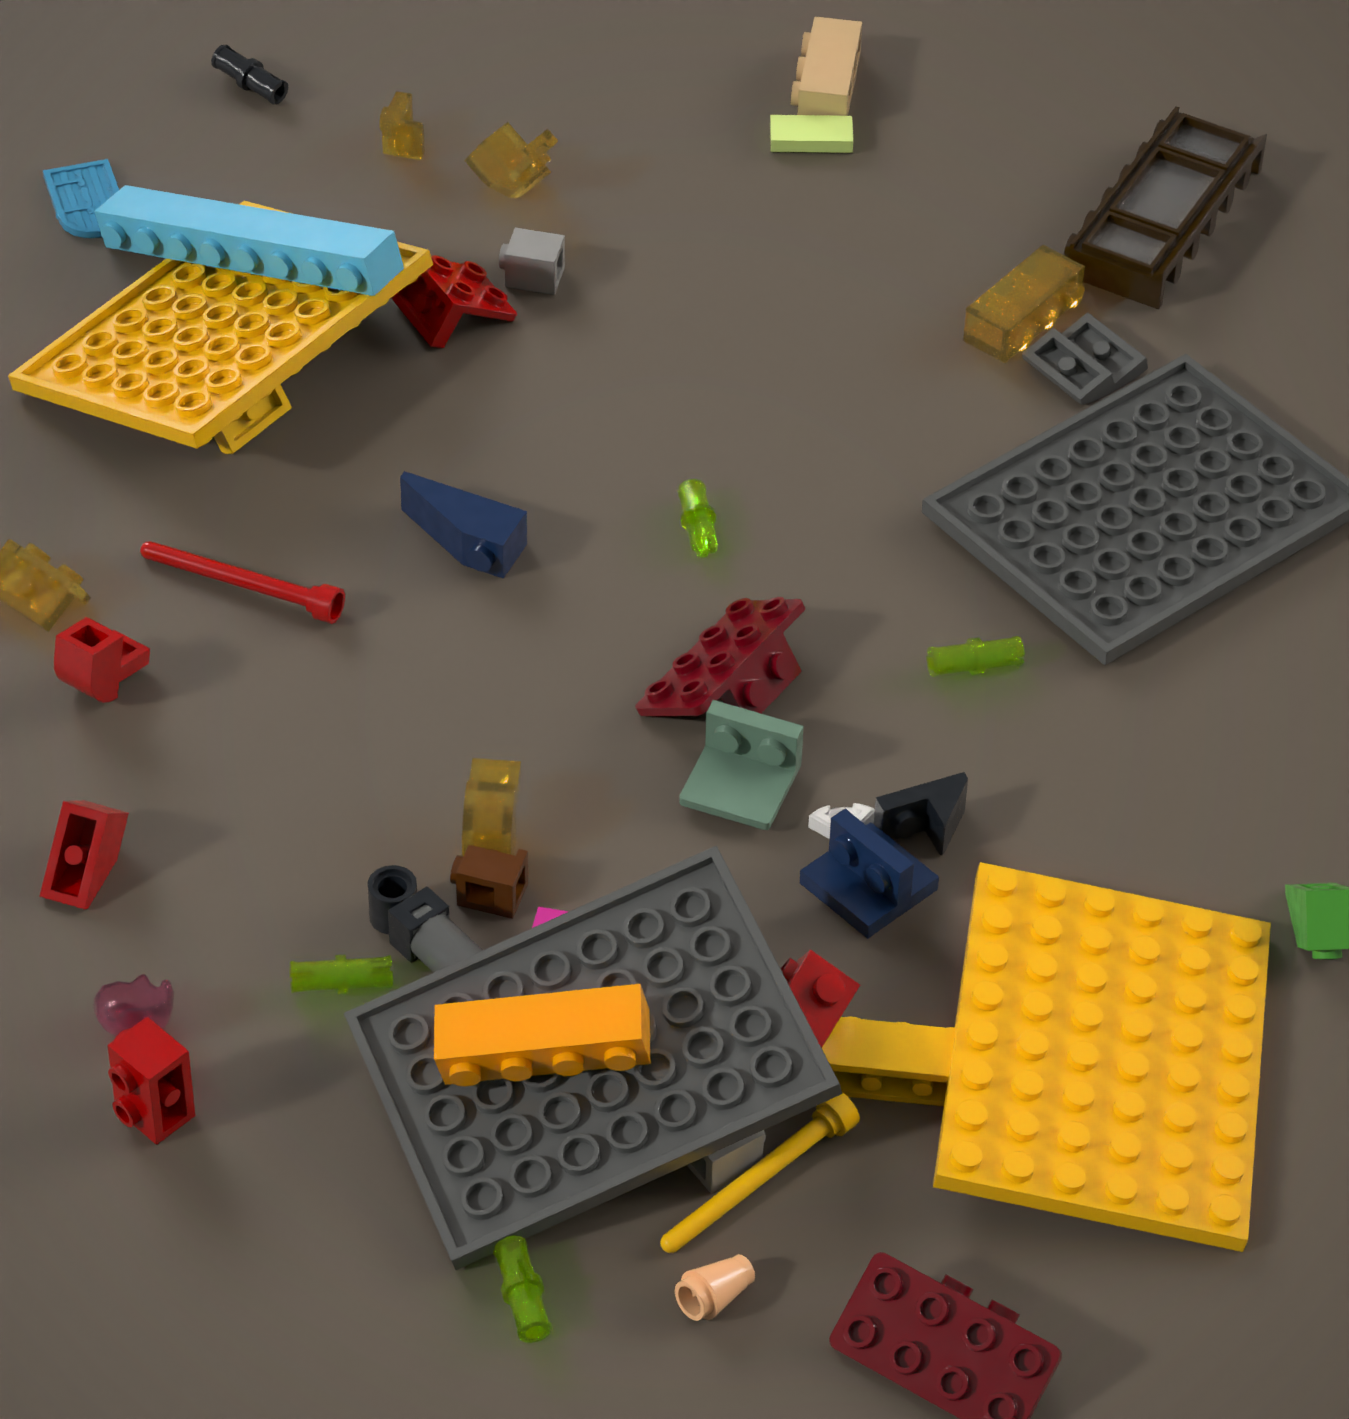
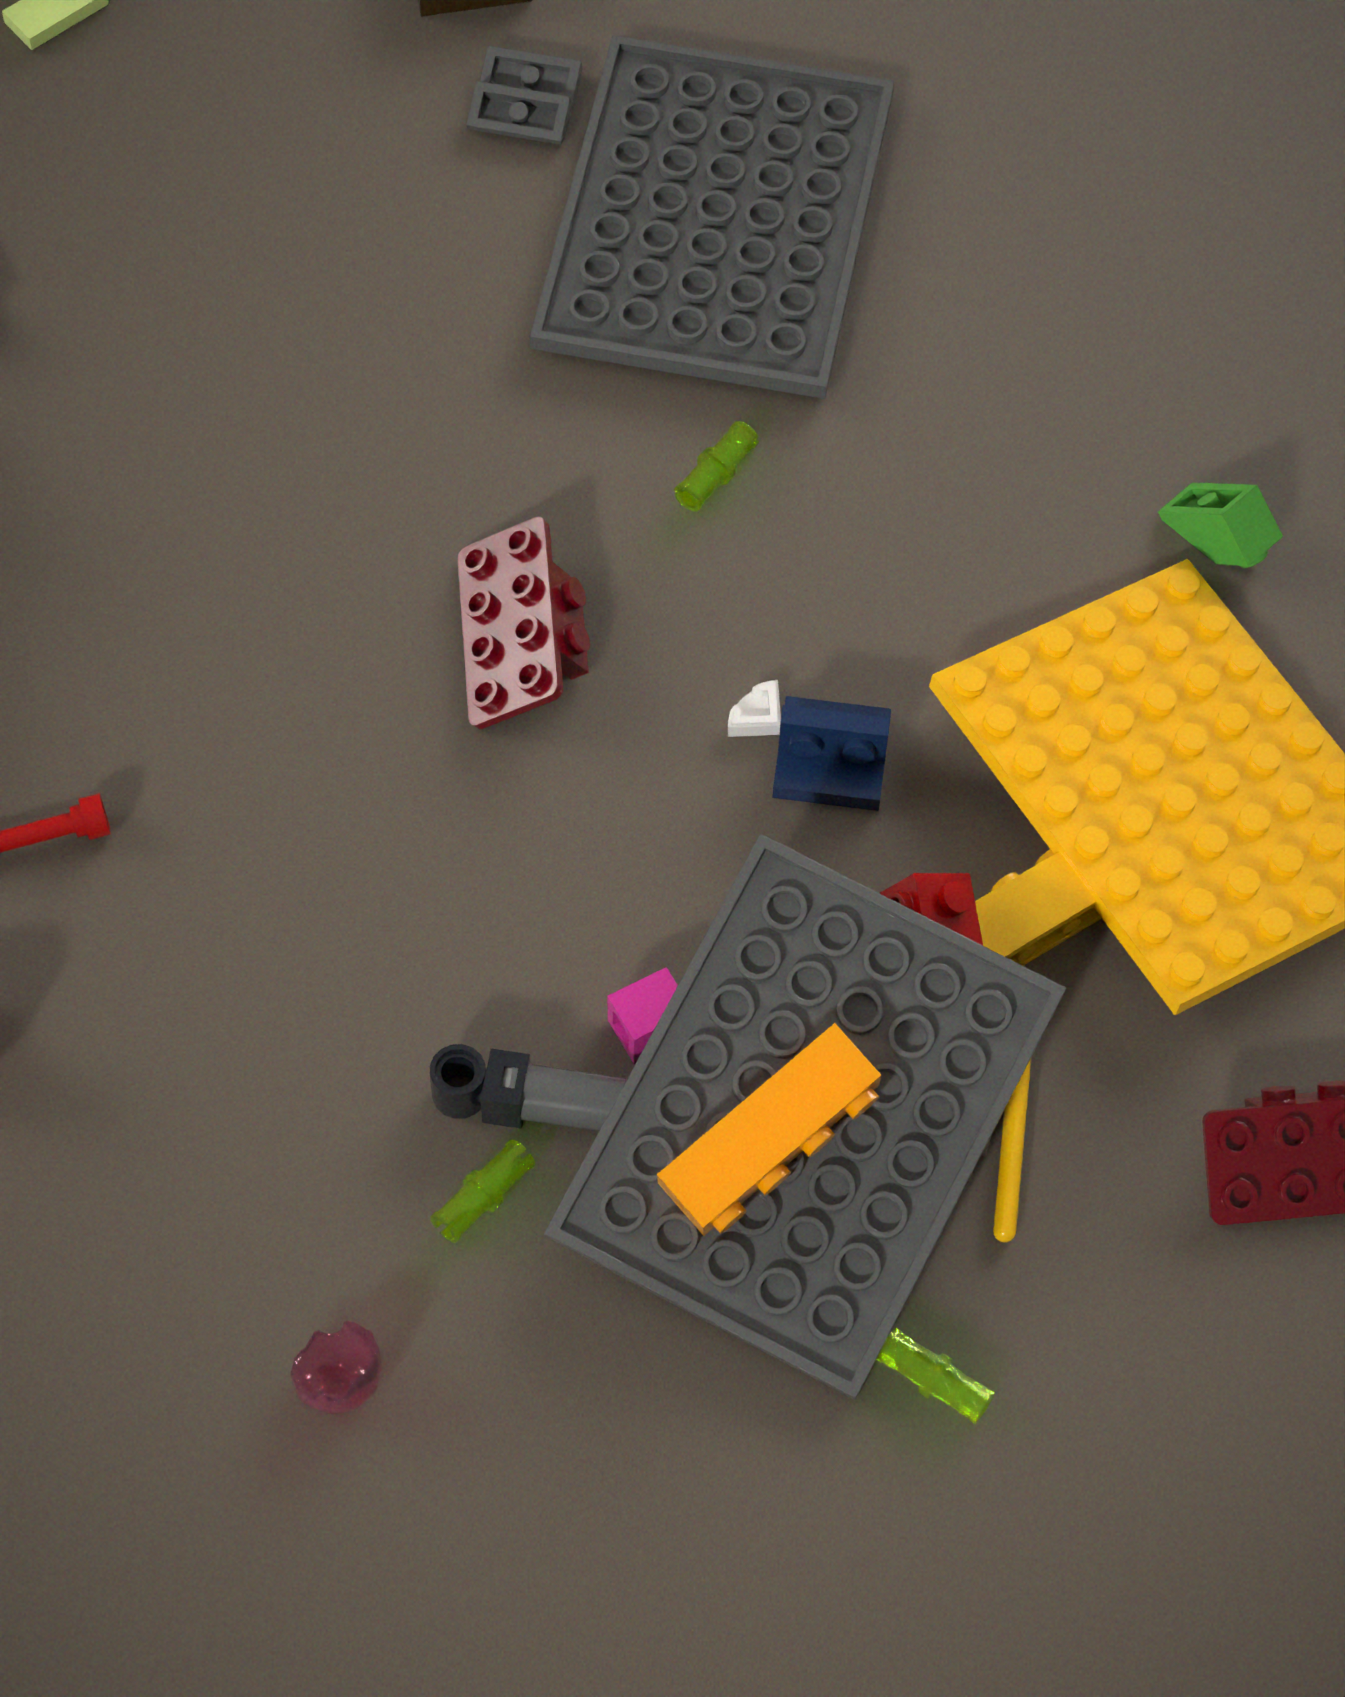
camera: 40 degrees left, 15 degrees up
(82, 852) = (128, 1248): red slope -> none
(151, 1080) = (438, 1436): red brick -> none
(466, 525) = (148, 643): dark blue slope -> none
(490, 880) = (523, 996): reddish brown brick -> none
(491, 805) = (471, 929): clear yellow brick -> none
(698, 517) = (344, 489): clear neon green axle -> none
(713, 1287) = (1085, 1247): light nougat cone -> none
(744, 766) = (633, 721): sand green bracket -> none
(924, 807) = (827, 648): black slope -> none
(1024, 303) = (426, 72): clear yellow brick -> none

